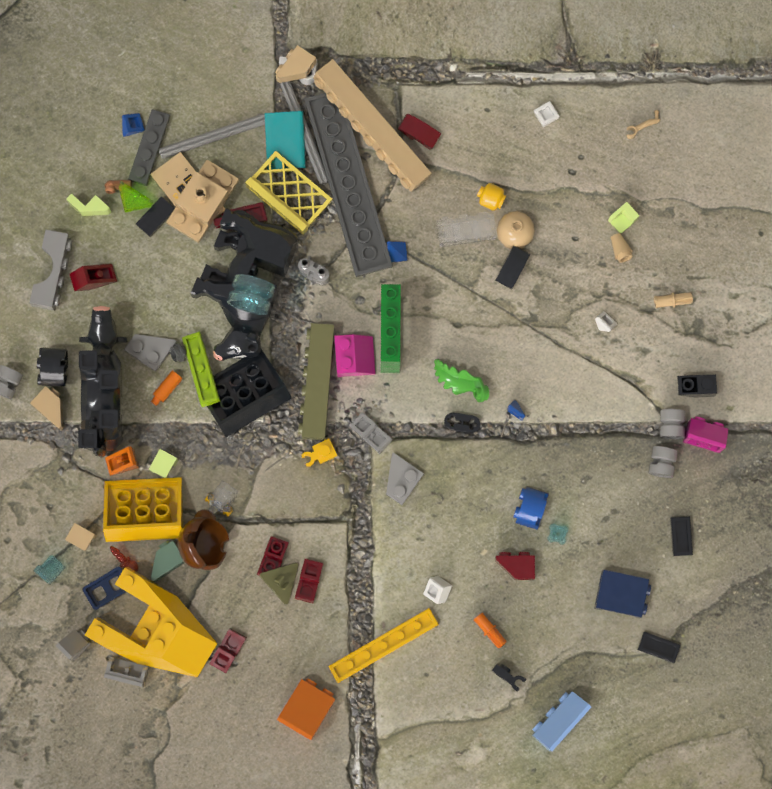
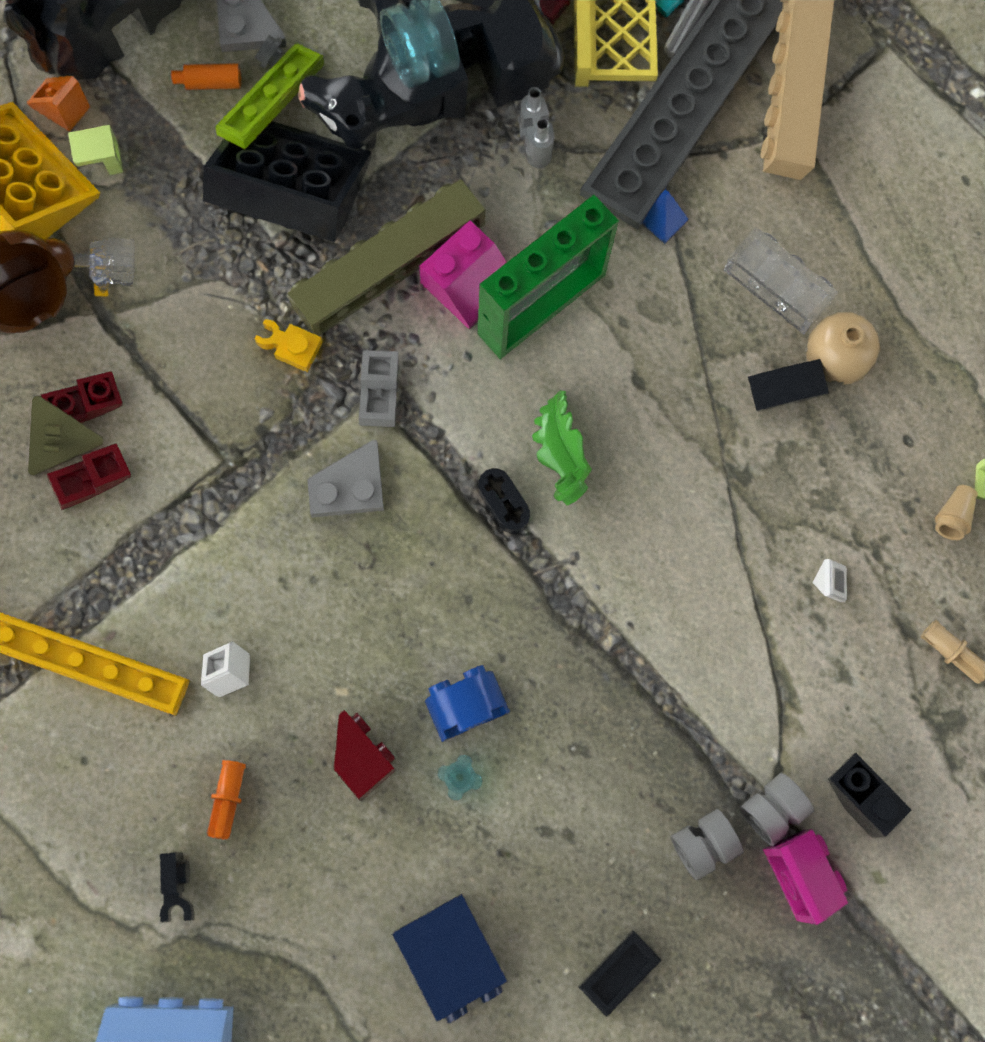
camera: 45 degrees right, 5 degrees down
(419, 130) = (855, 113): dark red slope -> none
(491, 196) = (857, 277): yellow head -> none
(516, 410) = (590, 557): blue slope -> none

